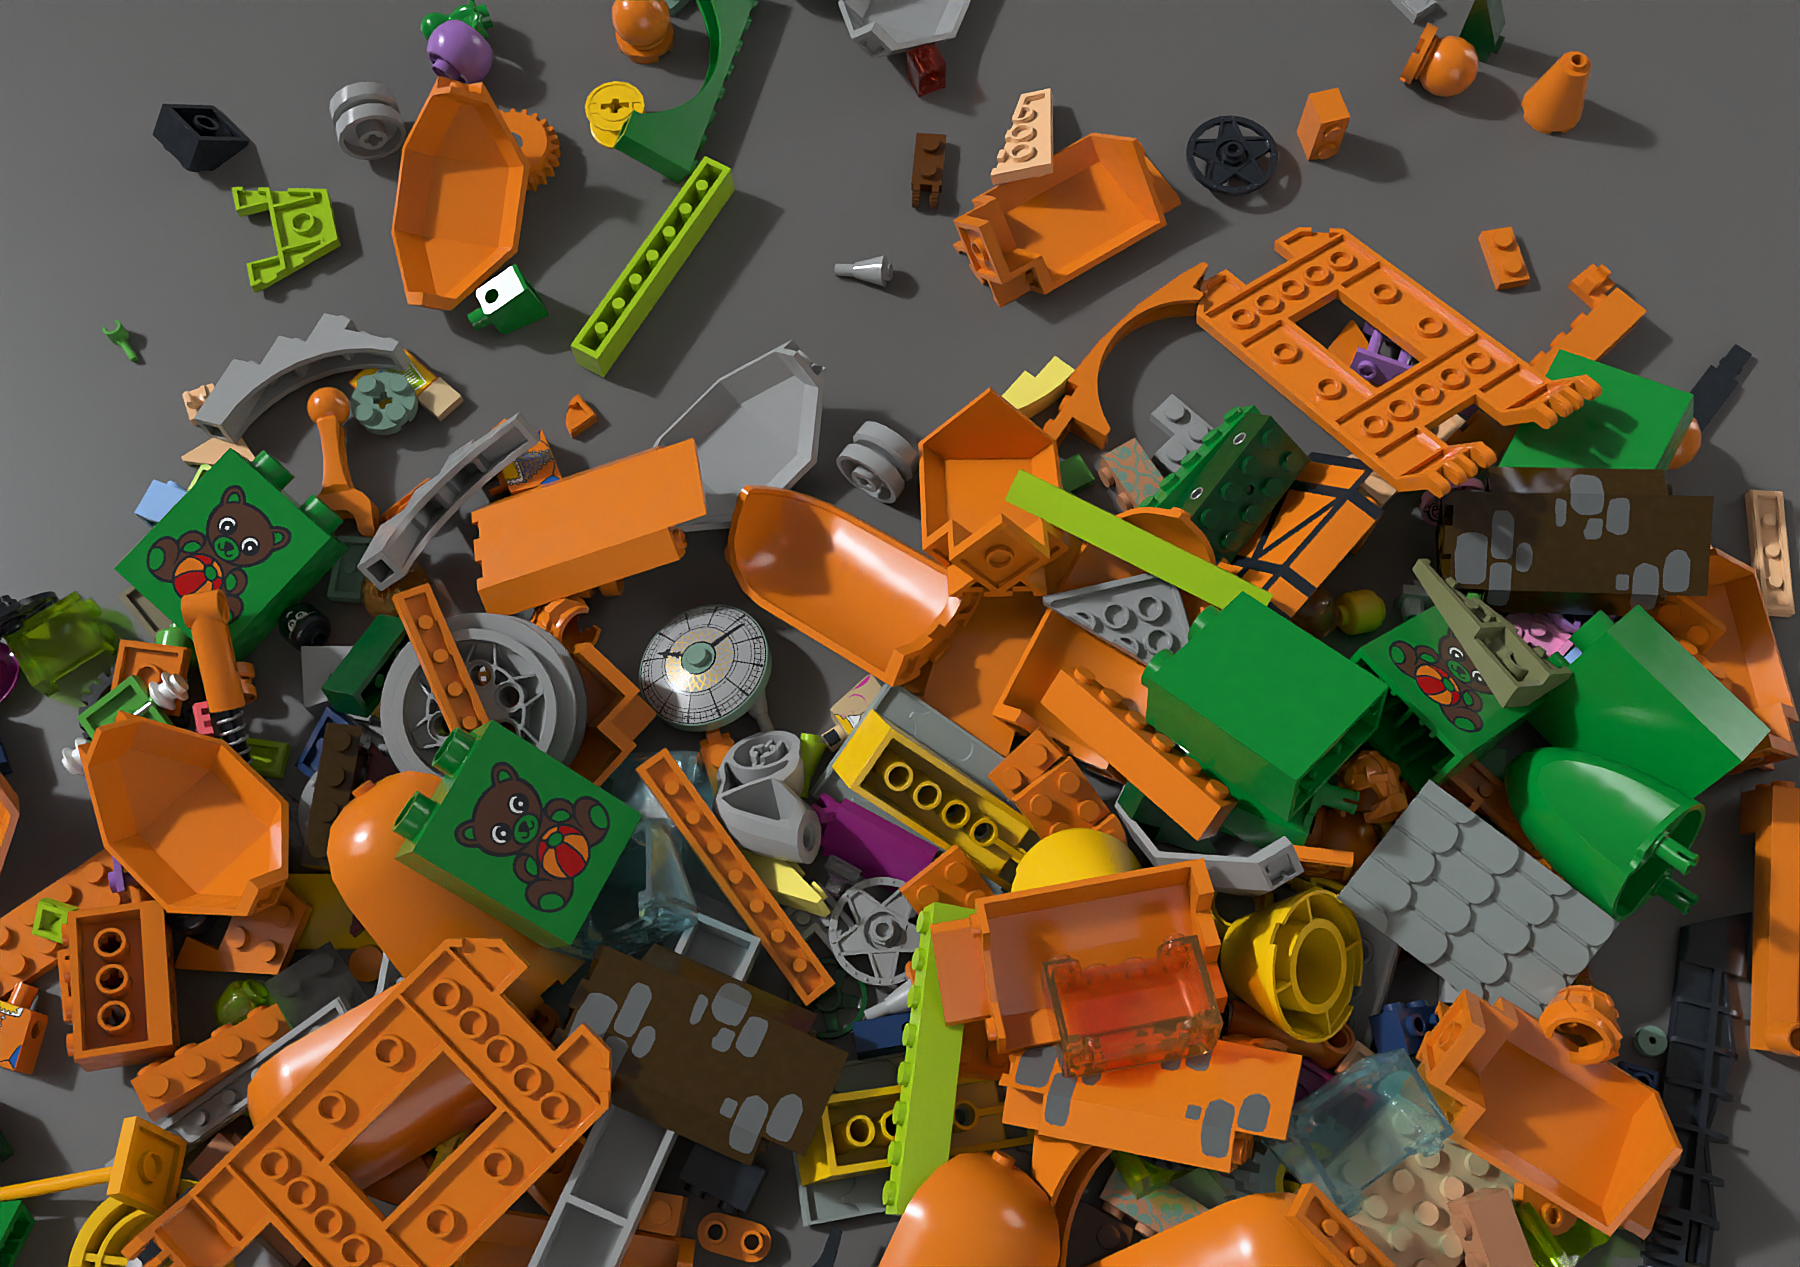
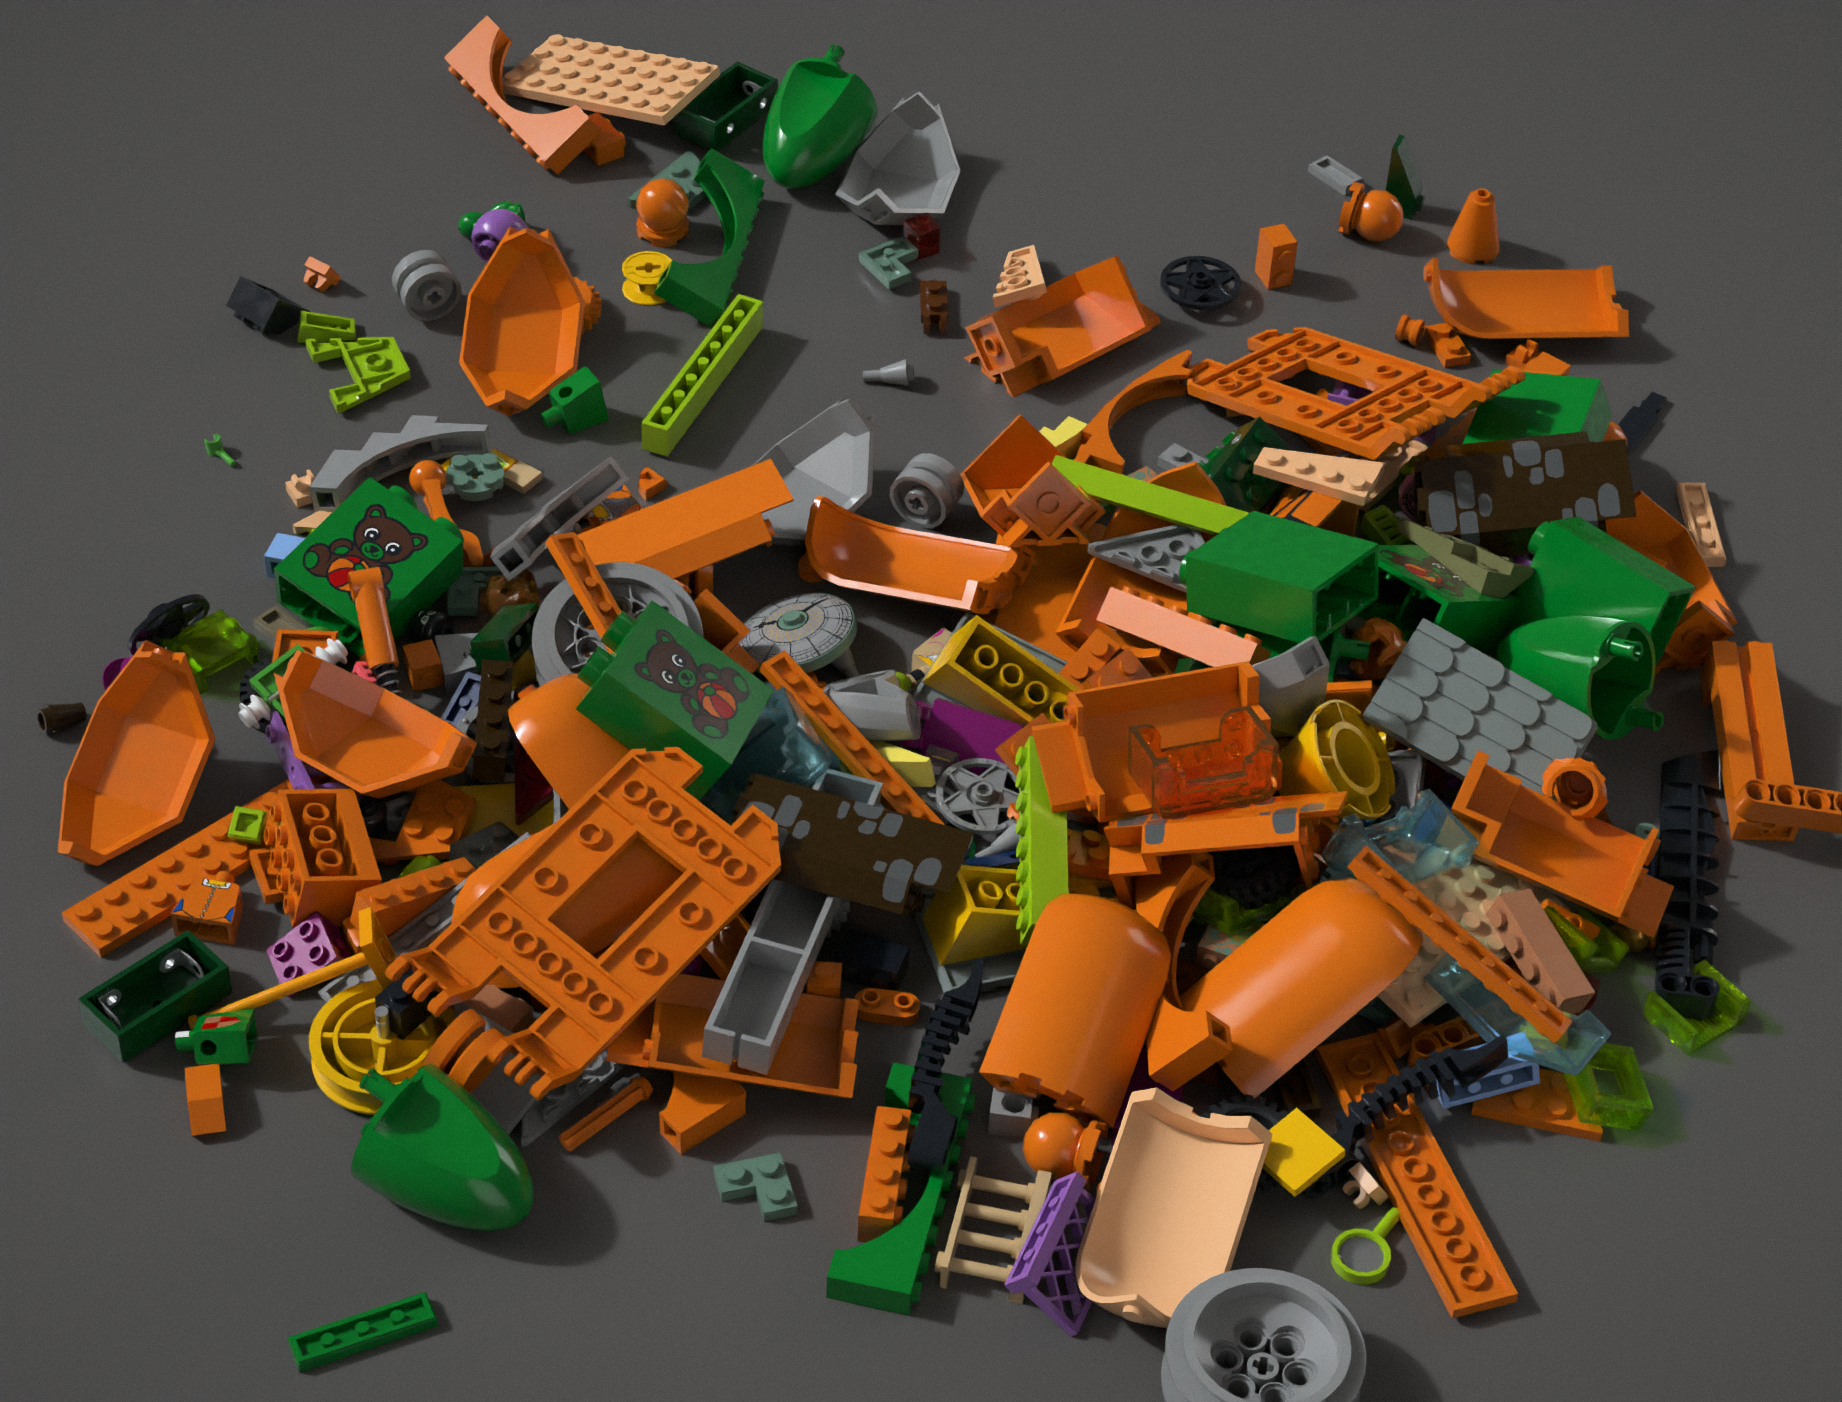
camera: 10 degrees left, 25 degrees down
(98, 1107) = (308, 948): none -> magenta bracket
(251, 158) = (324, 327): none -> lime slope
(265, 89) = (322, 272): none -> orange tile
(285, 680) = (423, 665): none -> orange brick
(881, 101) = (887, 261): none -> sand green plate
(1339, 508) = (1328, 475): none -> light nougat wing
(1387, 545) = (1379, 519): none -> lime slope
(1463, 237) = (1410, 329): none -> orange wheel
(1609, 210) = (1528, 303): none -> orange panel

